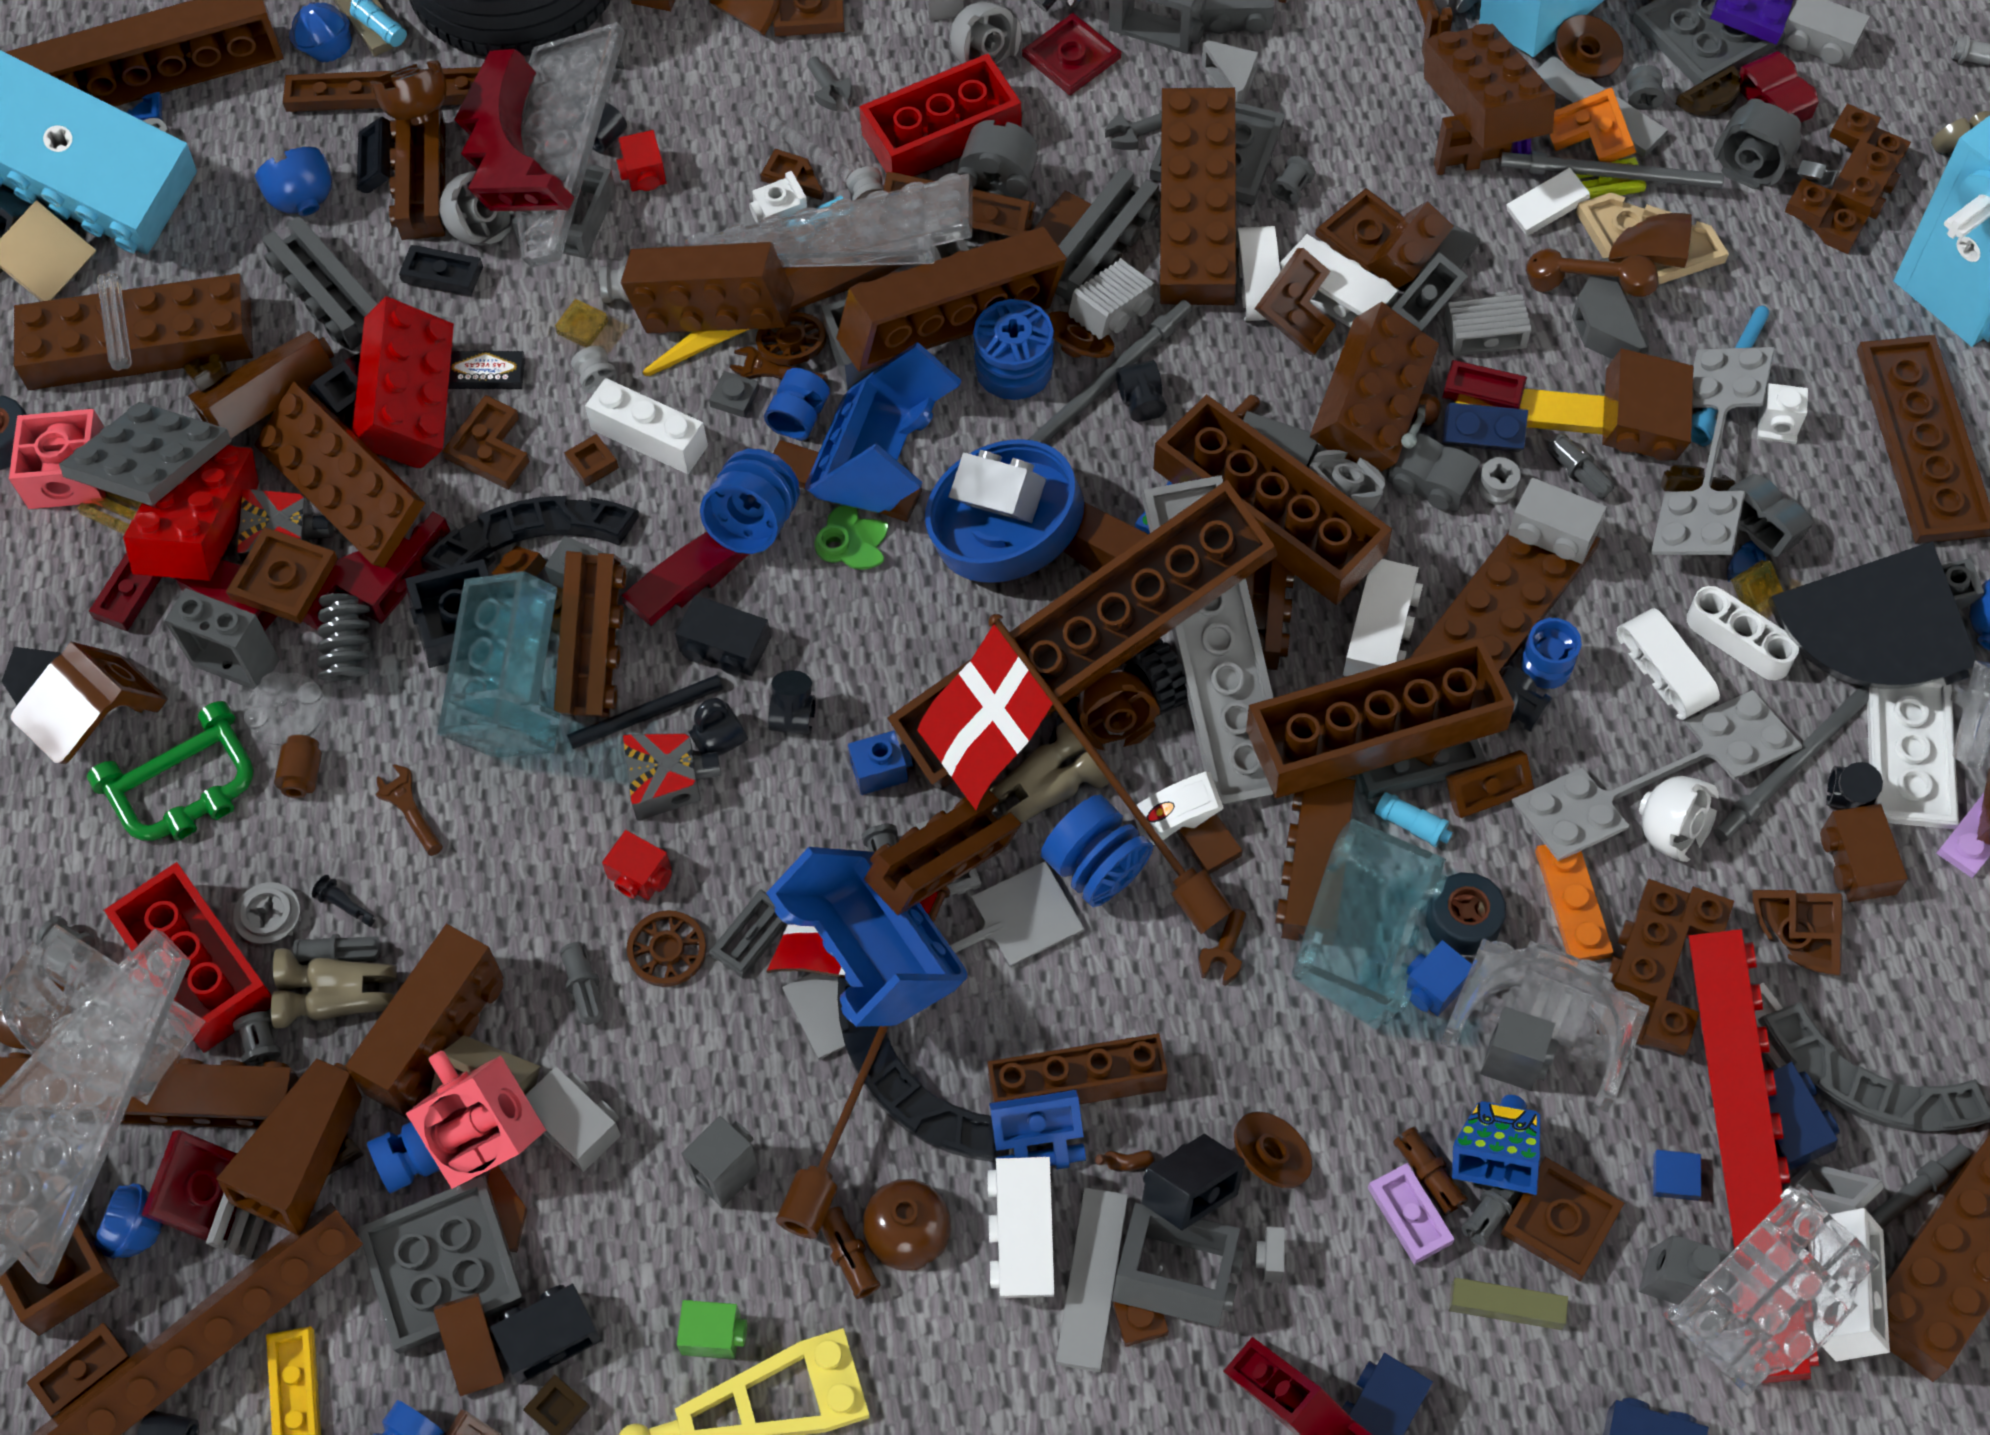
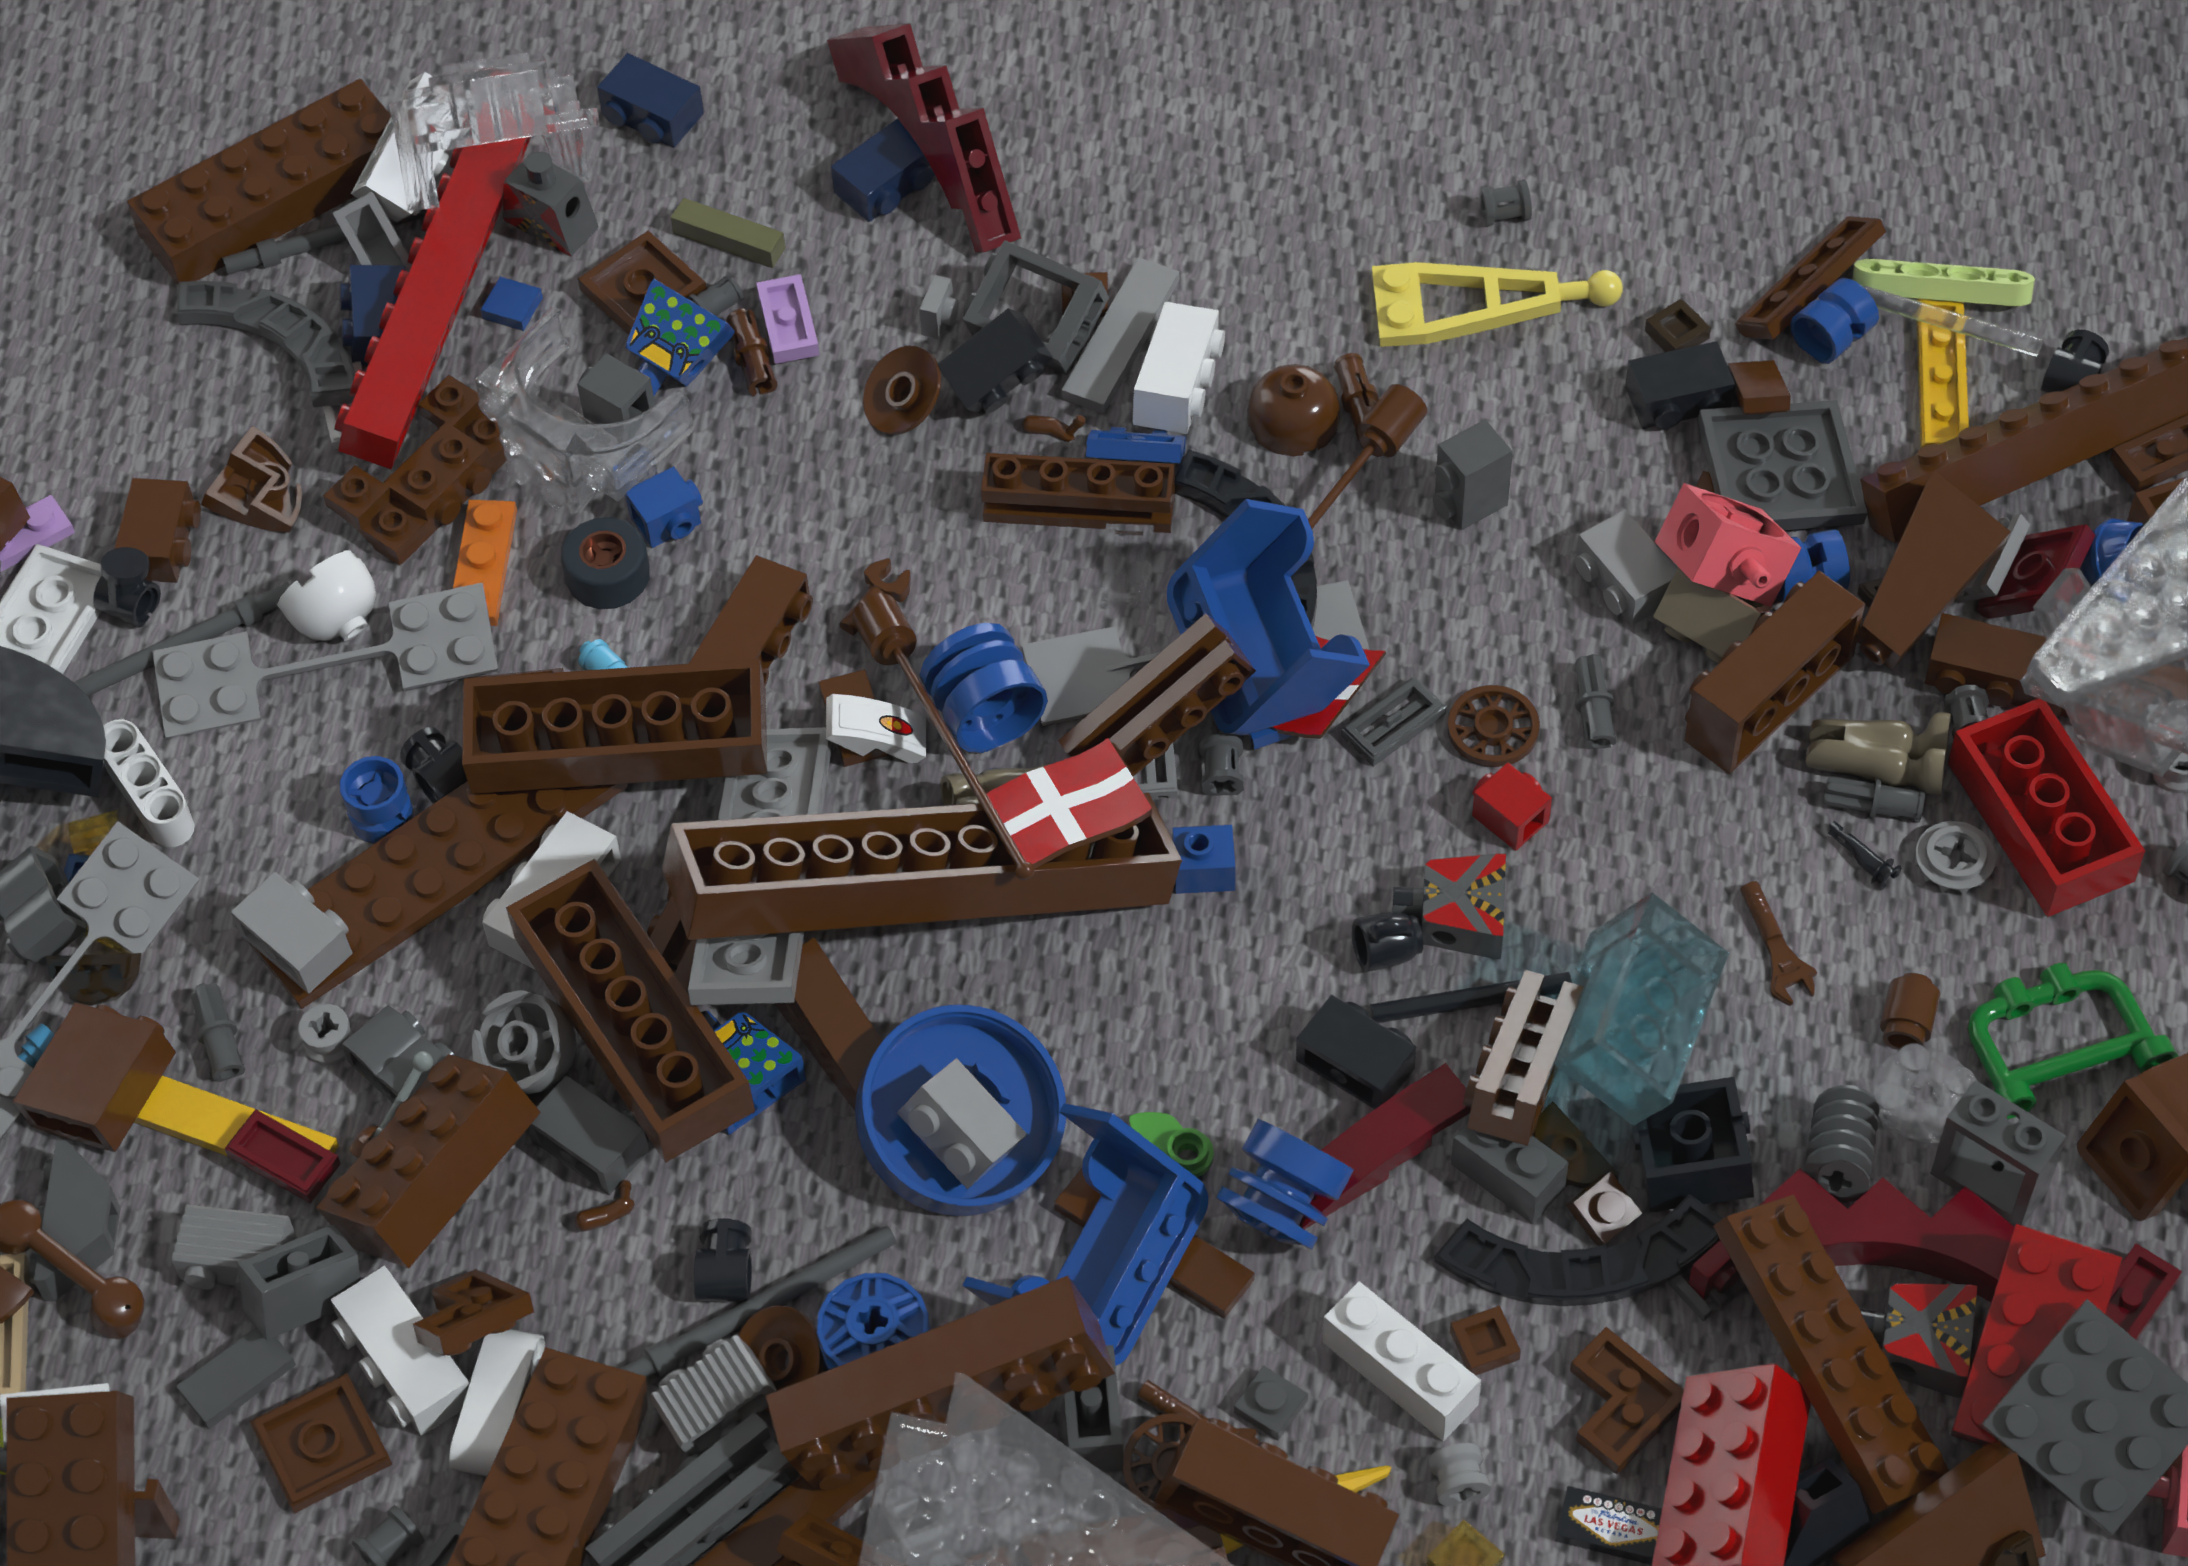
camera: 165 degrees left, 5 degrees down
(282, 575) = (1915, 1216): reddish brown plate -> none
(710, 1329) = (1512, 356): bright green brick -> none
(791, 703) = (1290, 942): black piece -> none
(797, 403) = (1194, 1338): blue wheel -> none
(1367, 922) = (755, 513): clear light blue windscreen -> none
(1410, 245) = (281, 1370): reddish brown brick -> none
(1484, 427) = (313, 1091): dark blue brick -> none
(1669, 662) = (247, 773): white beam -> none

